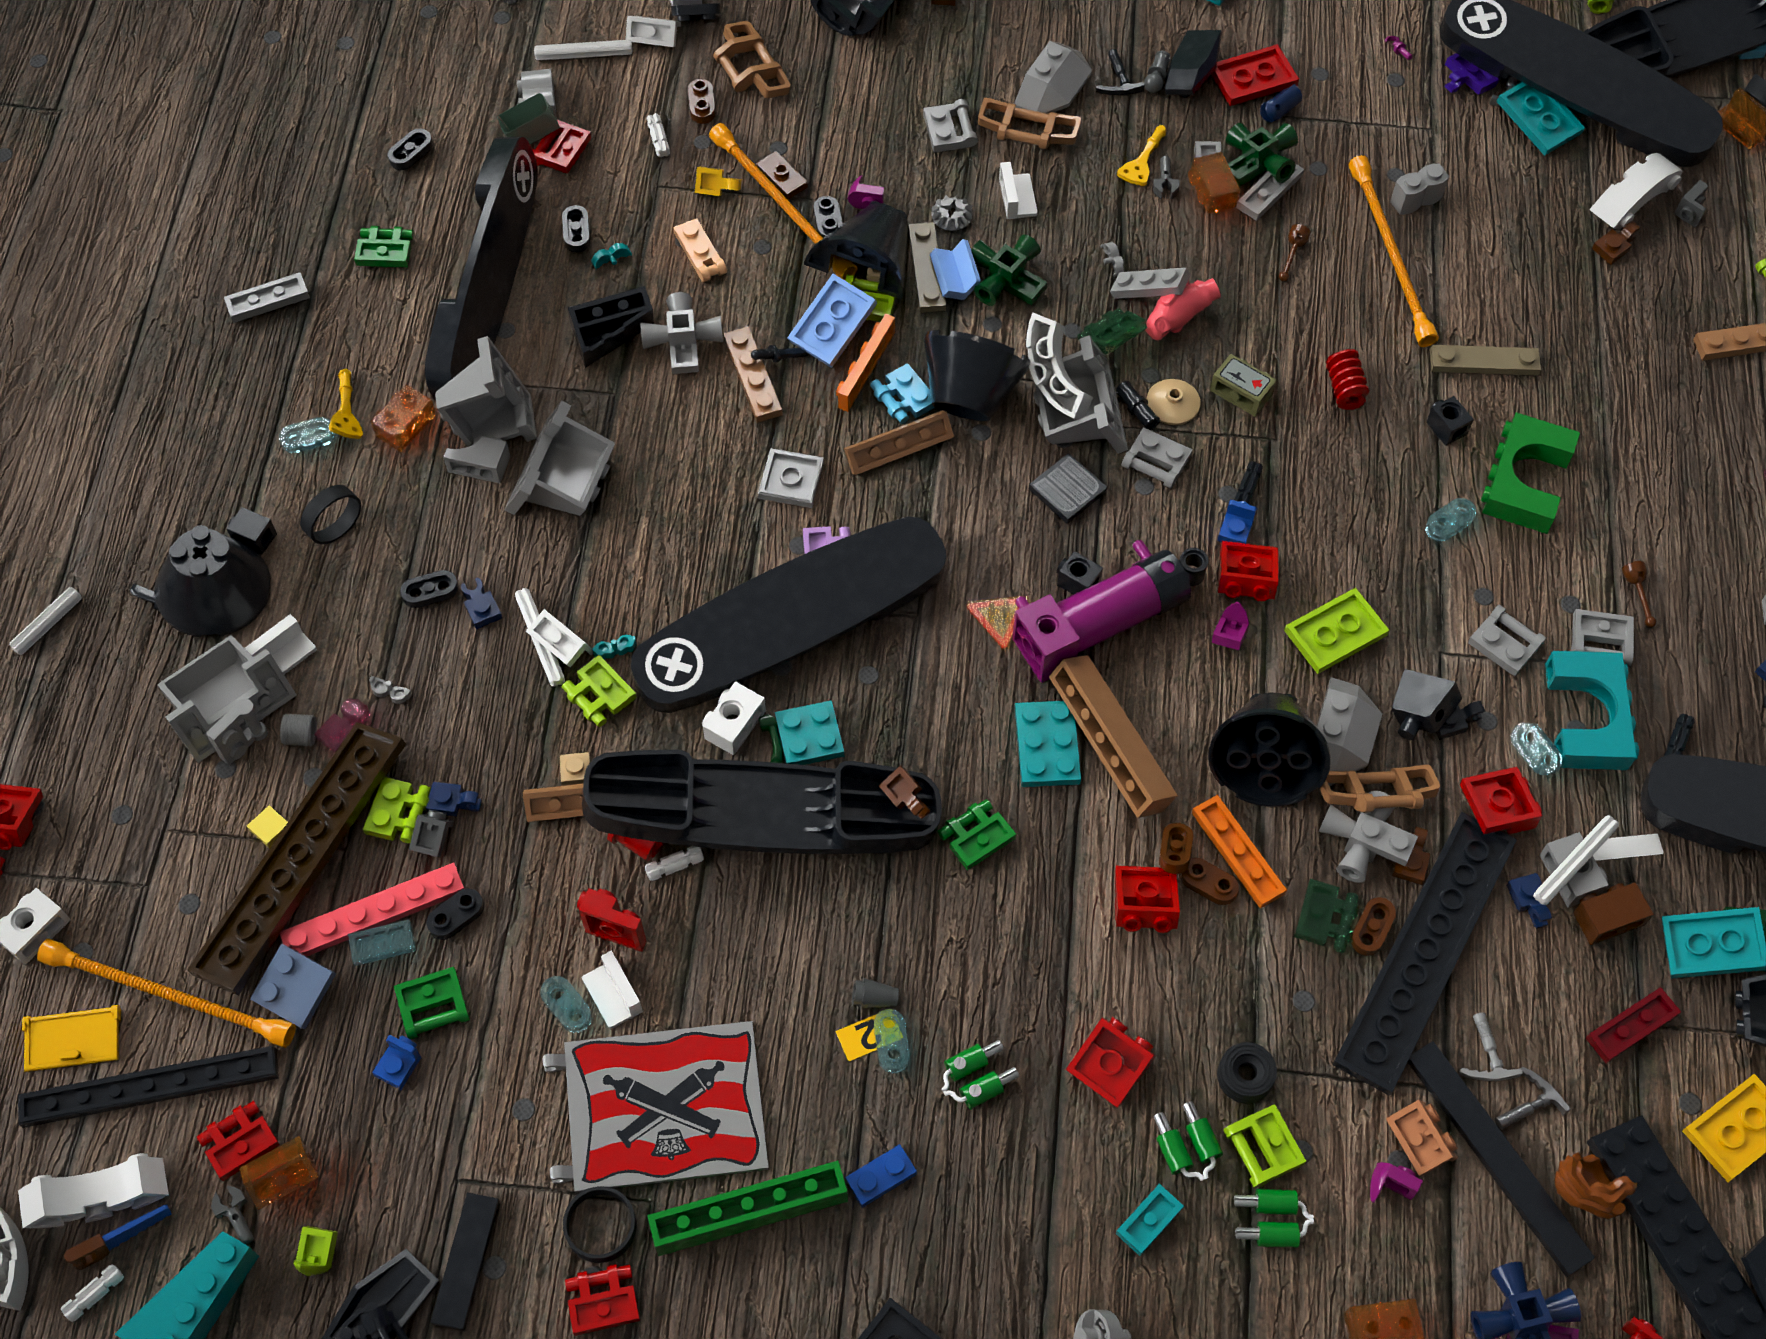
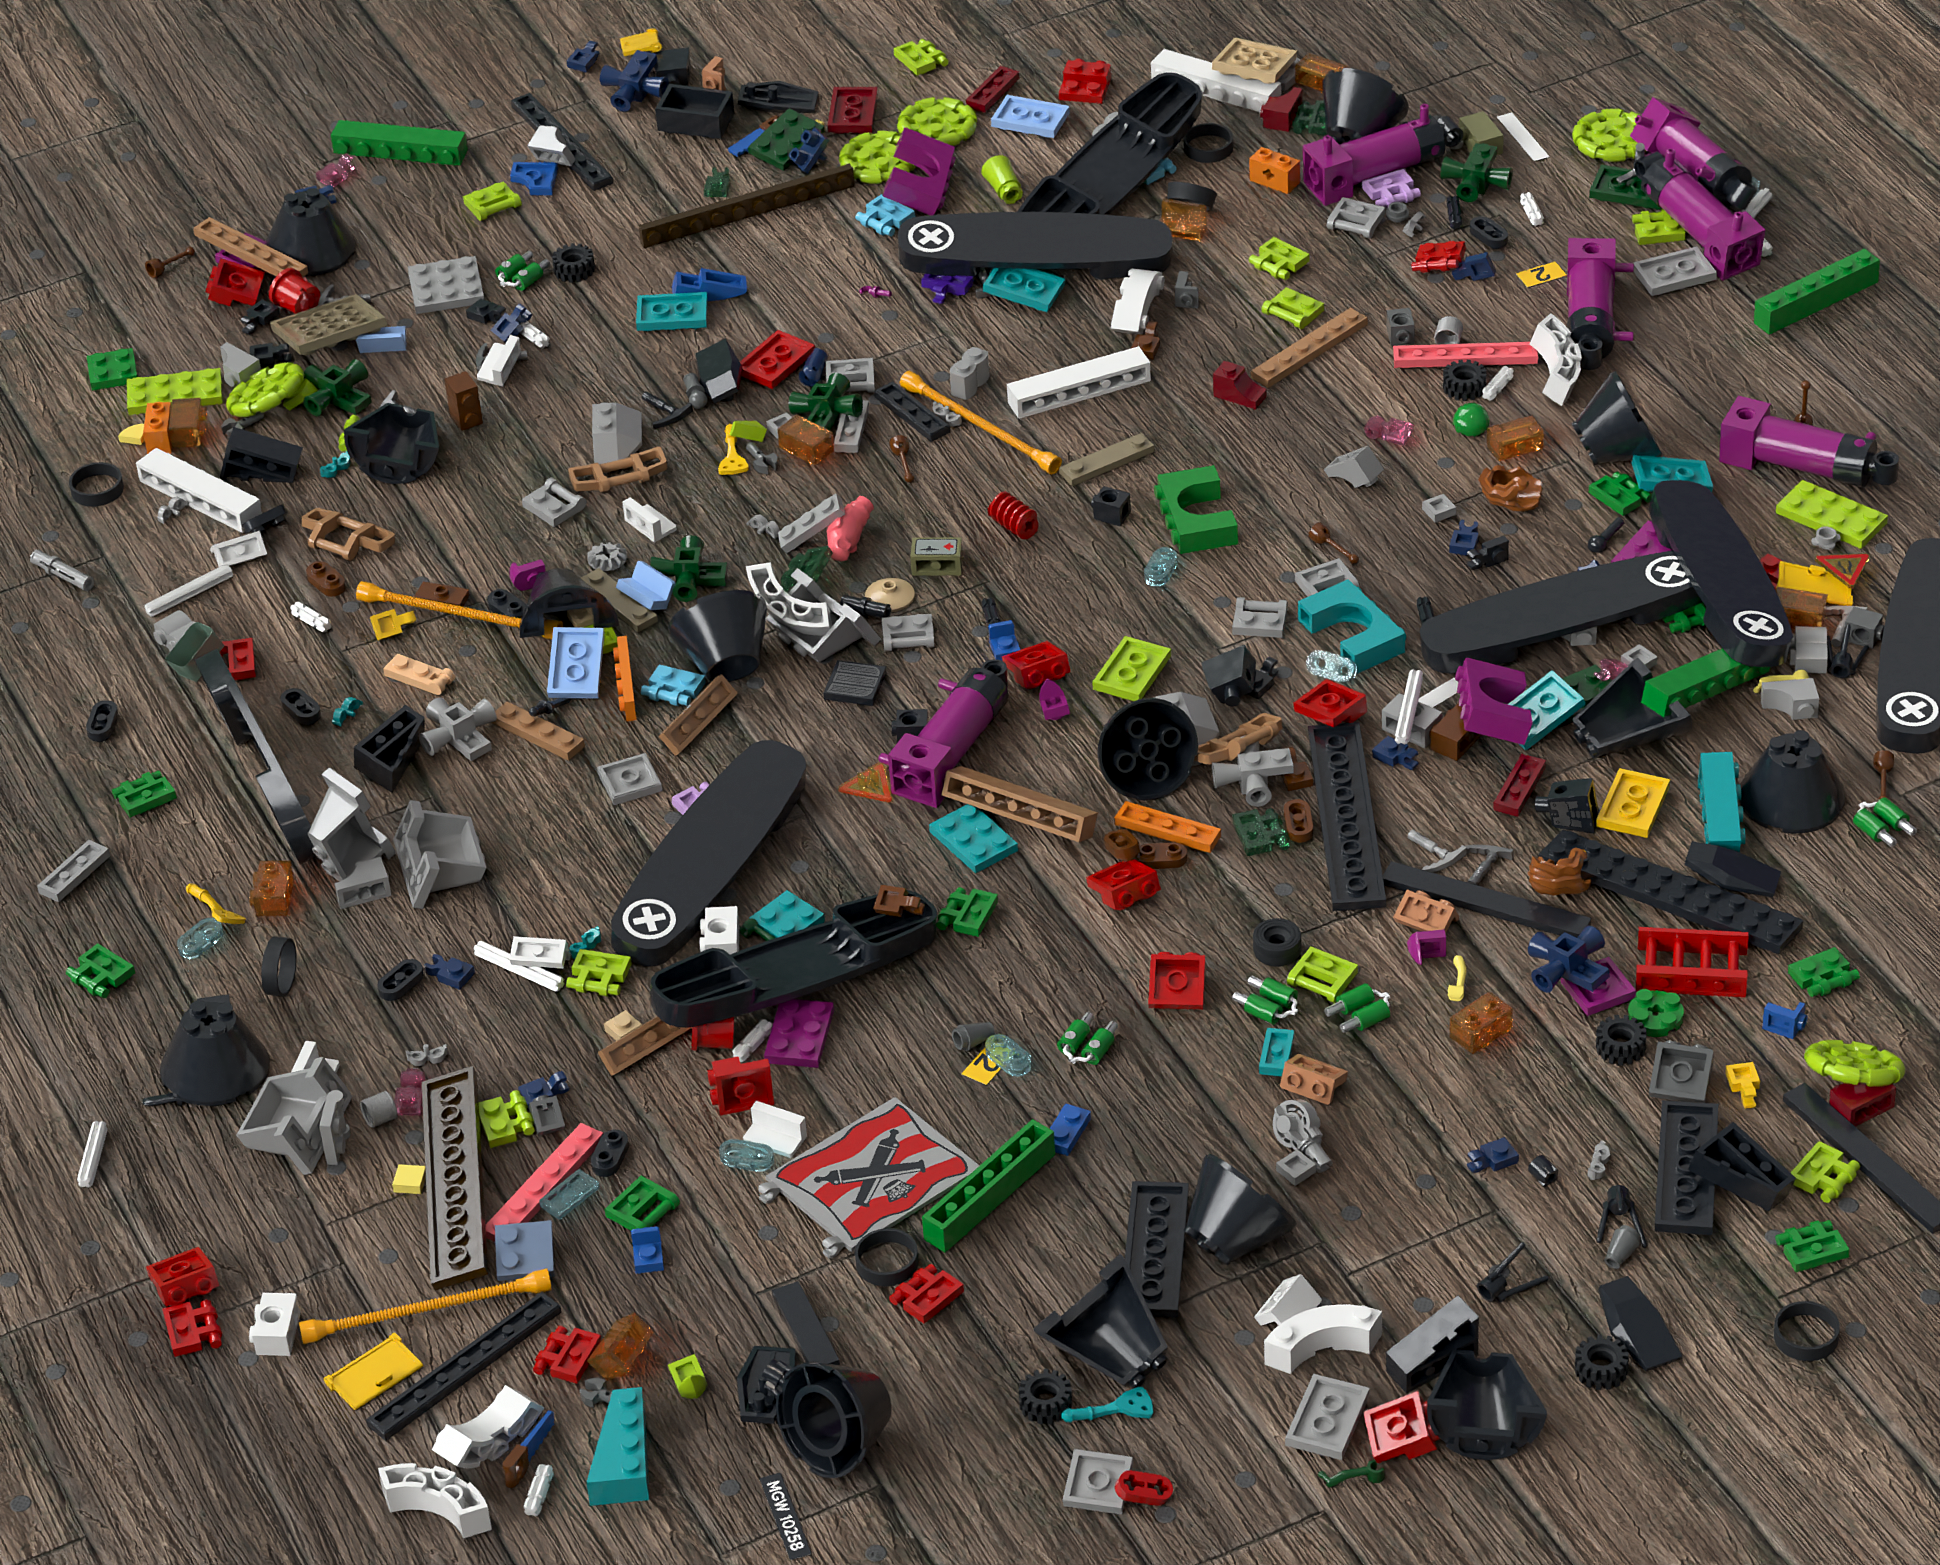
camera: 30 degrees left, 20 degrees down
(212, 419) = (105, 965): none -> green plate
(721, 884) = (799, 1033): none -> magenta plate
(1164, 1279) = (1312, 1078): none -> nougat bracket
(1172, 142) = (748, 430): none -> lime piece
(1314, 126) = (854, 370): none -> light grey plate
(1339, 201) = (912, 411): none -> black tile
(1365, 218) = (944, 413): none -> light grey piece
(1385, 1262) = (1456, 992): none -> light yellow piece
(1517, 255) = (1078, 382): none -> white brick
(1644, 920) = (1480, 690): none -> magenta arch
(1668, 1094) = (1571, 805): none -> torso
(1669, 345) = (1234, 385): none -> dark red arch
(1724, 511) = (1357, 467): none -> light grey arch

